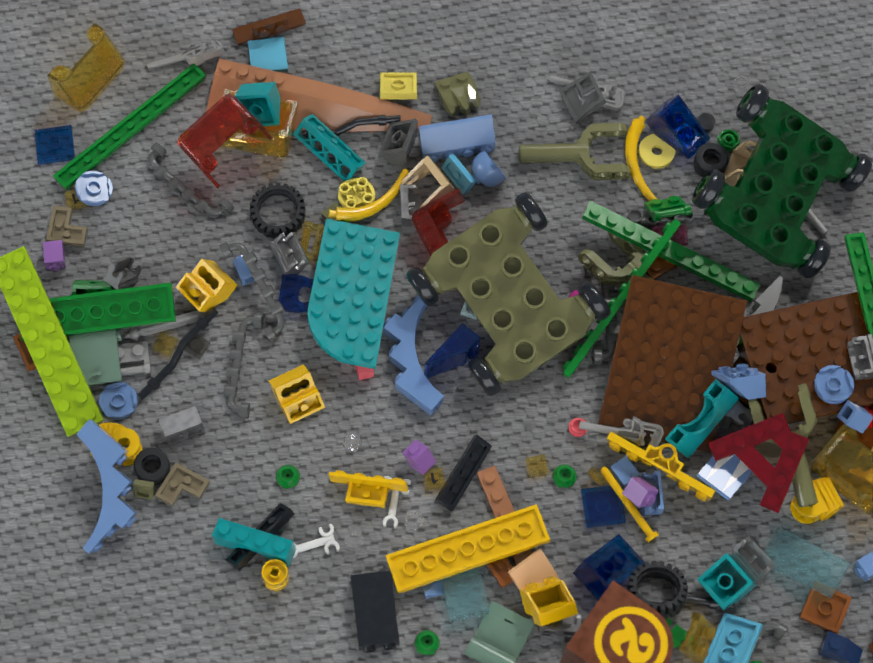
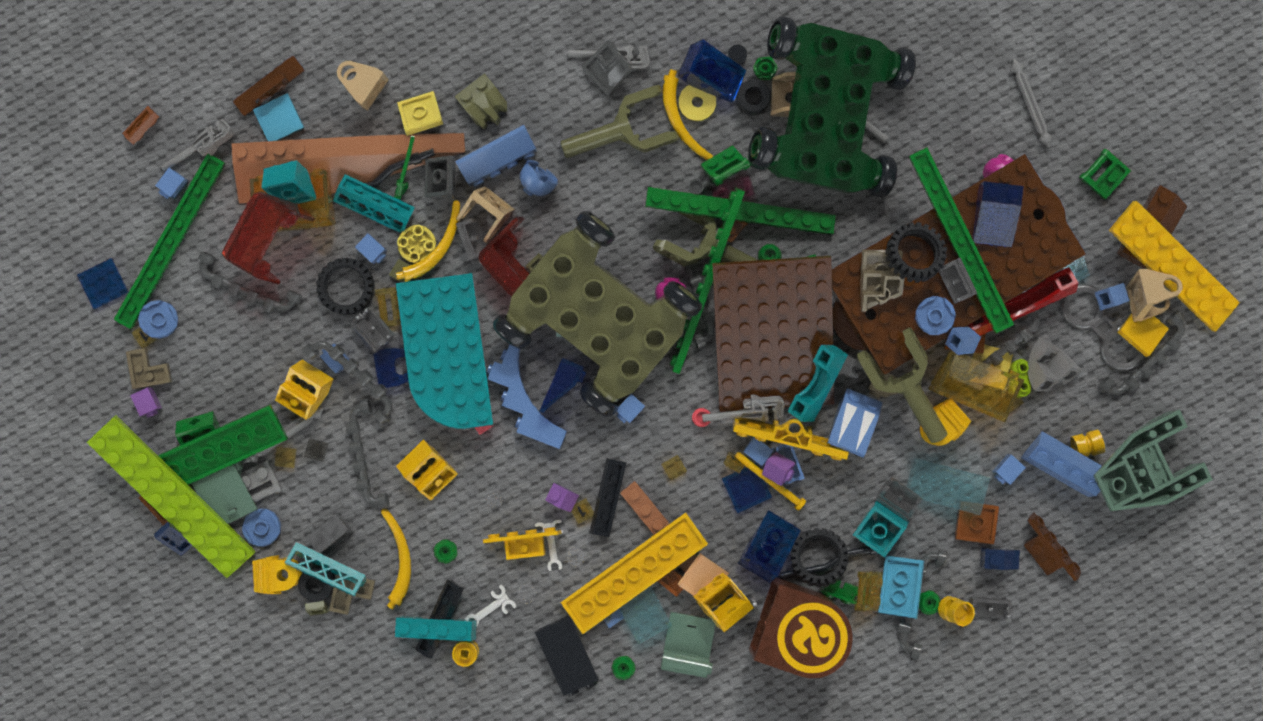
camera: 10 degrees left, 20 degrees up
(32, 381) = (172, 538): none -> dark blue tile
(90, 75) = (110, 199): clear yellow windscreen -> none
(114, 484) = (272, 596): medium blue arch -> none
(121, 273) = (219, 403): flat silver hinge -> none
(148, 22) = (140, 125): none -> dark orange plate
(151, 79) = (171, 184): none -> medium blue brick
(168, 450) = (327, 565): none -> teal fence
(200, 325) = (288, 500): black bar -> none
(236, 491) = (404, 573): none -> yellow animal
(313, 185) = (371, 249): none -> medium blue brick
(358, 45) = (365, 85): none -> tan hose
(361, 142) = (402, 186): none -> green sword
(458, 174) = (509, 191): medium azure plate -> none
(511, 397) = (629, 409): none -> medium blue brick
(565, 482) = (708, 469): green plate -> none
(742, 380) = (846, 339): medium blue slope -> none
(769, 298) = (847, 236): light grey slope -> none
(775, 478) = (864, 403): dark red plate -> none
(789, 333) = (878, 280): none -> dark tan slope
(841, 306) = (925, 234): none -> black tyre

